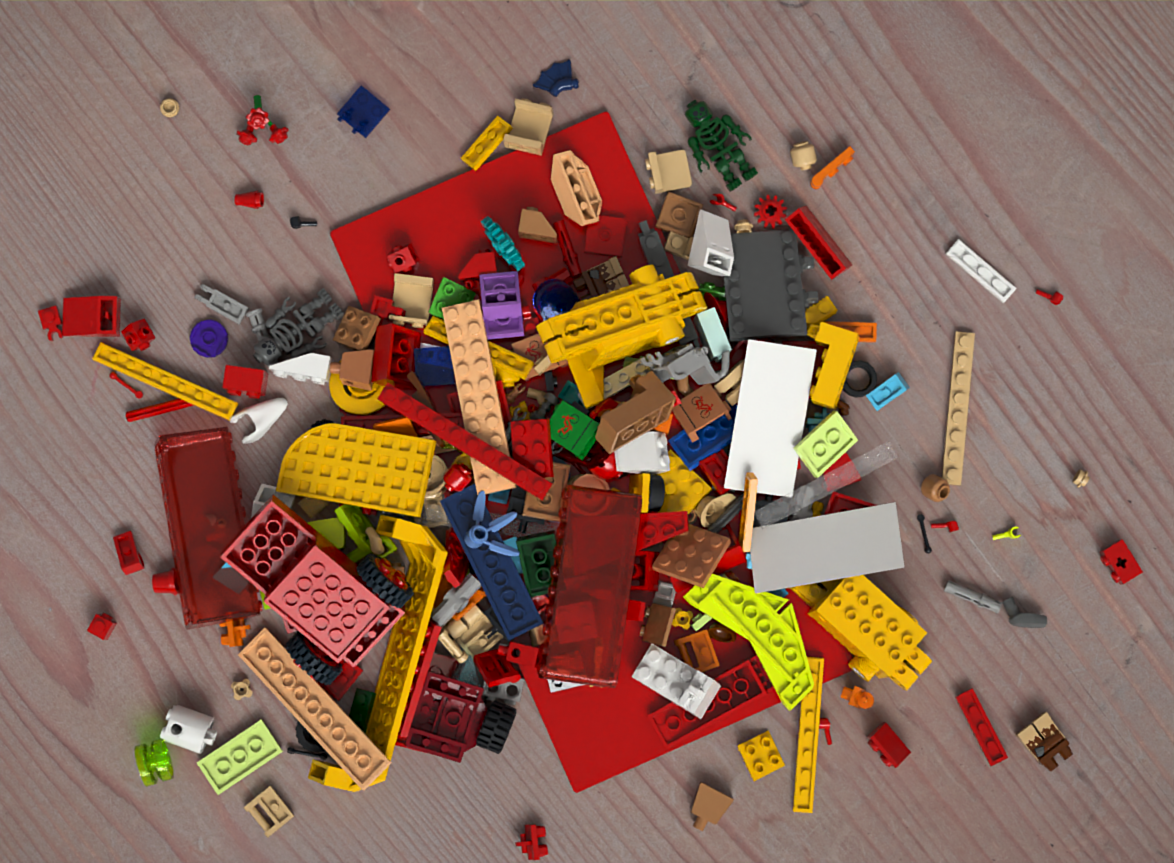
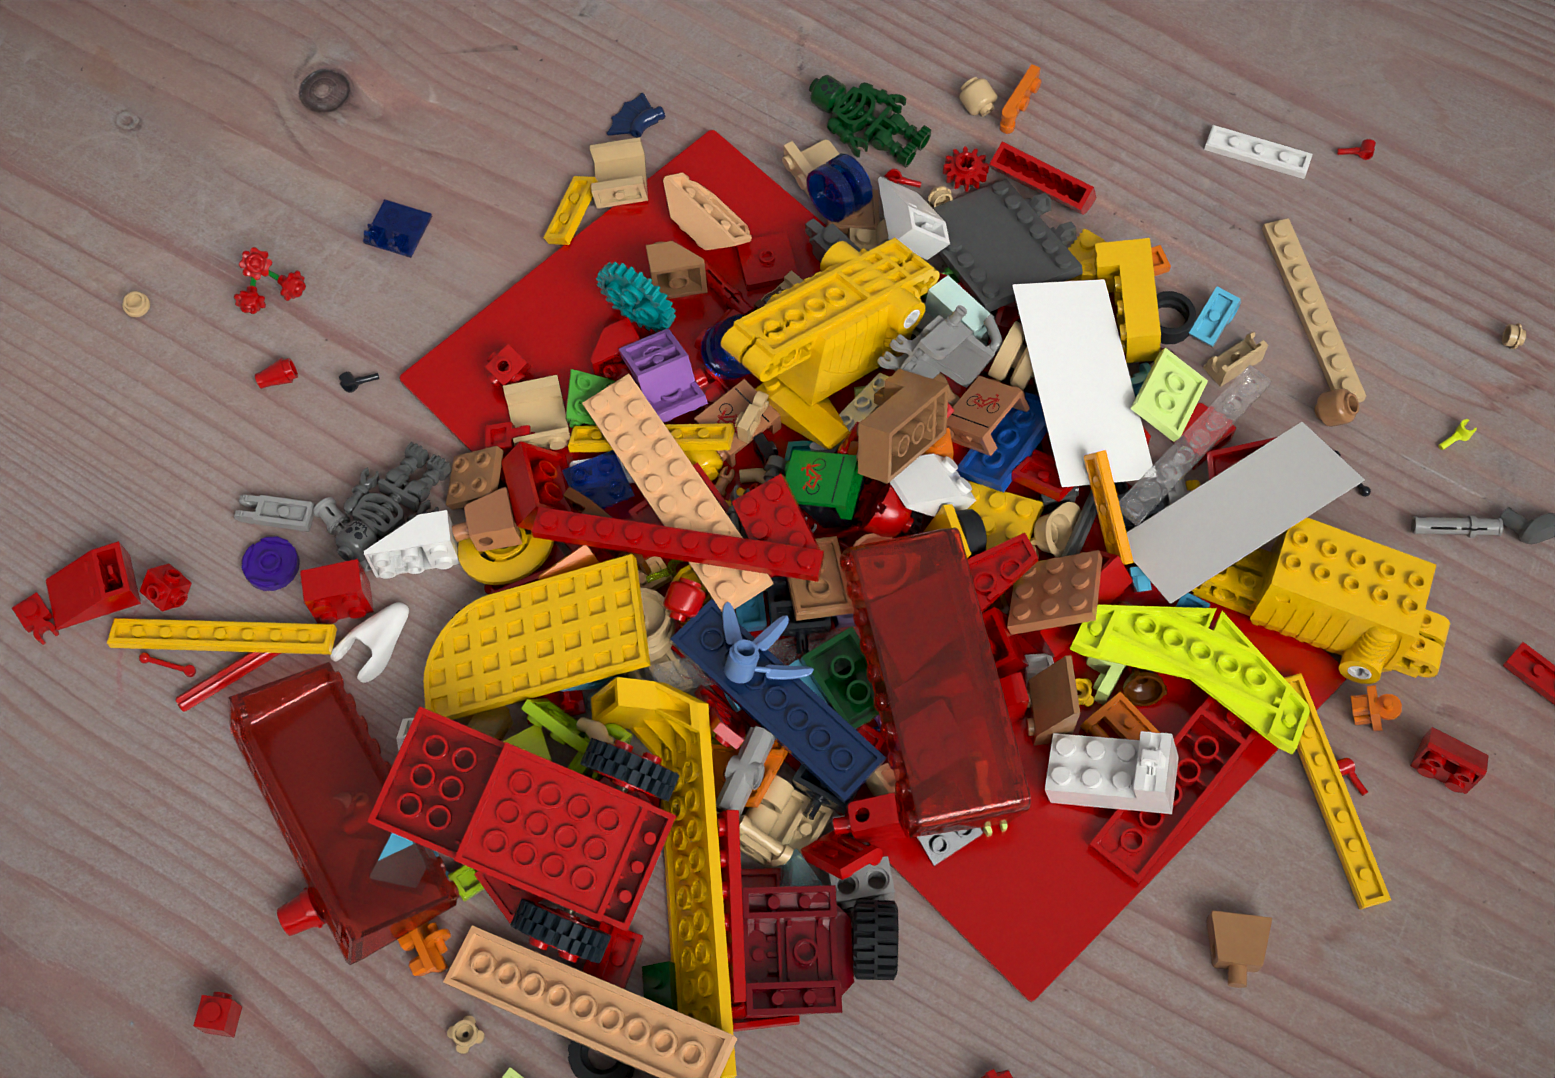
camera: 20 degrees left, 20 degrees down
(127, 553) = (231, 893): red plate -> none
(671, 206) = (839, 187): none -> clear blue wheel
(760, 755) = (1277, 845): yellow hinge -> none
(887, 425) = (1235, 360): none -> tan hinge
(952, 526) = (1381, 449): red hand -> none

